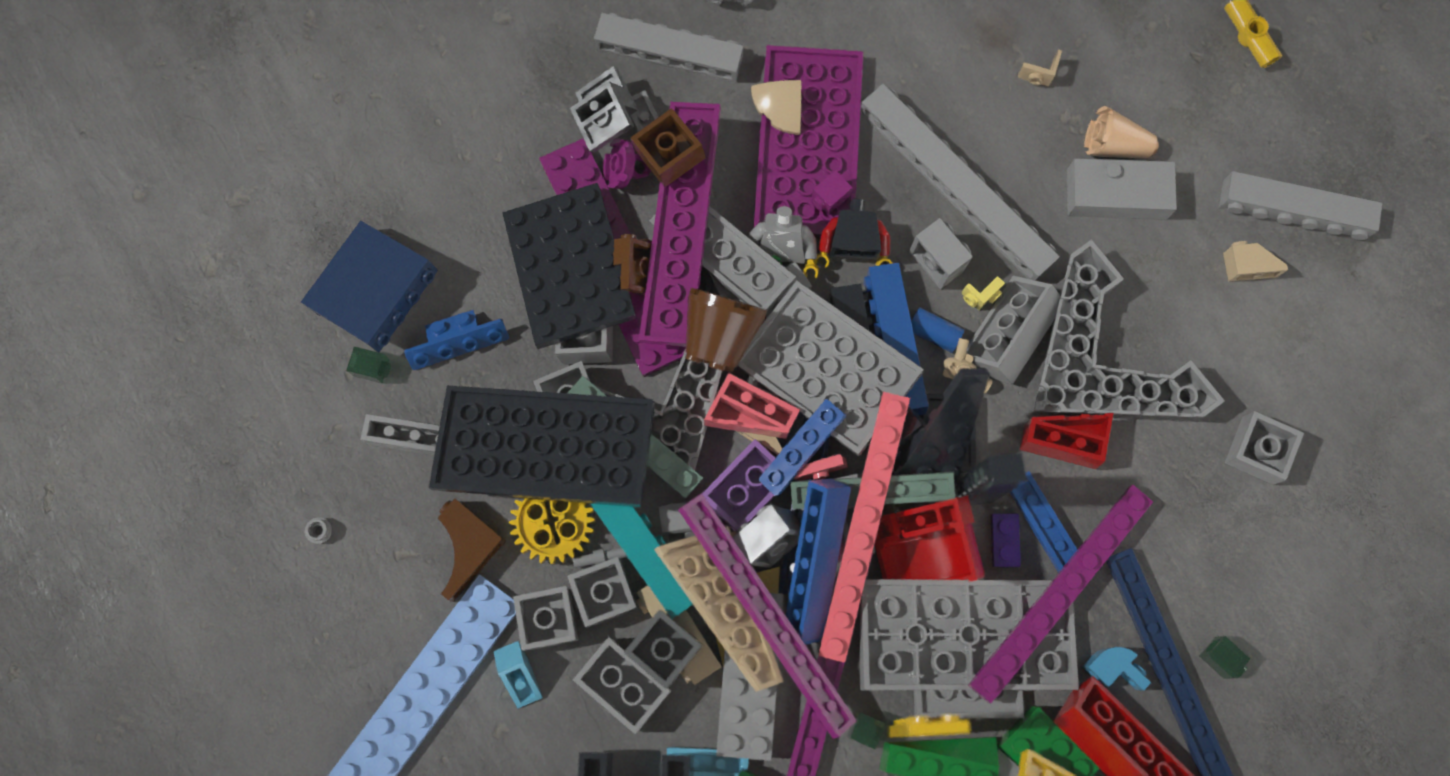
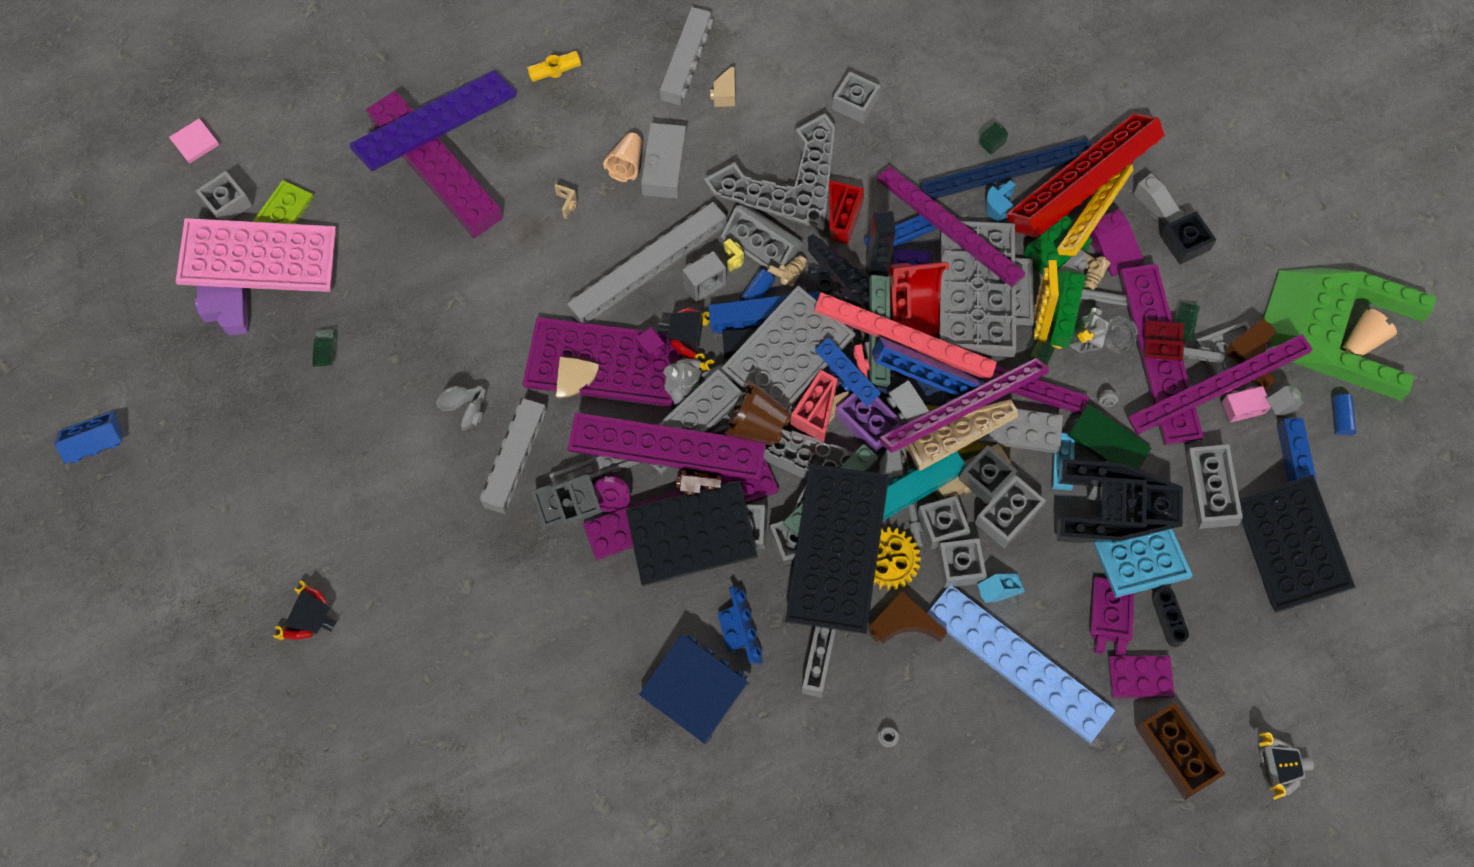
camera: 85 degrees left, 10 degrees down
(368, 365) = (758, 693): clear green brick -> none
(668, 147) = (611, 446): reddish brown brick -> none

